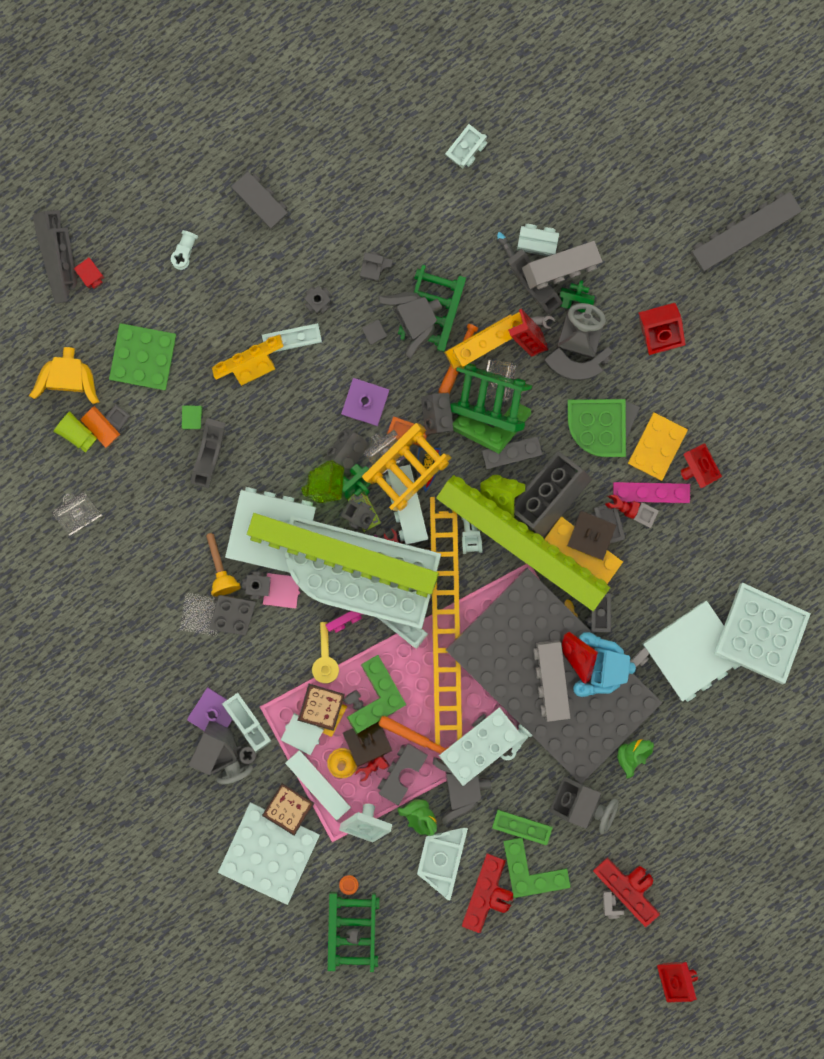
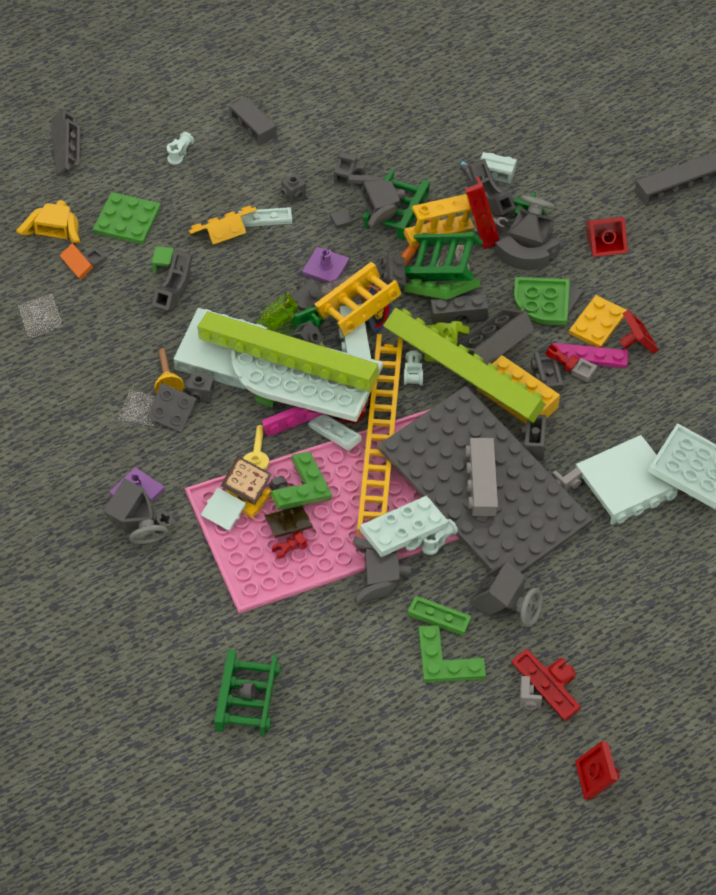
camera: 10 degrees right, 35 degrees down
(75, 432) = (51, 259): lime plant -> none
(89, 273) = (92, 155): red brick -> none
(246, 722) = (169, 497): light aqua slope -> none
(267, 855) = (170, 616): light aqua plate -> none
(283, 591) = (224, 400): bright pink piece -> none
(288, 809) = (197, 574): piece -> none
(318, 785) = (232, 556): light aqua tile -> none
(341, 763) = (259, 539): yellow piece -> none
(348, 885) = (249, 651): orange plate -> none
(365, 825) = (275, 589): light aqua tile -> none
(409, 734) = (326, 509): orange piece -> none
(409, 758) = (328, 539): dark grey arch -> none
(419, 817) = (333, 593): bright green hair -> none
(441, 860) = (351, 637): light aqua wing -> none
(466, 146) = (440, 102): light aqua bracket -> none
(487, 894) = (396, 673): red plate -> none
(561, 265) = (517, 177): light grey brick -> none
(579, 655) = (511, 454): red wing -> none
(591, 535) = (530, 369): dark brown piece -> none
(609, 669) = (540, 467): medium azure torso -> none
(634, 754) = (563, 560): bright green hair -> none

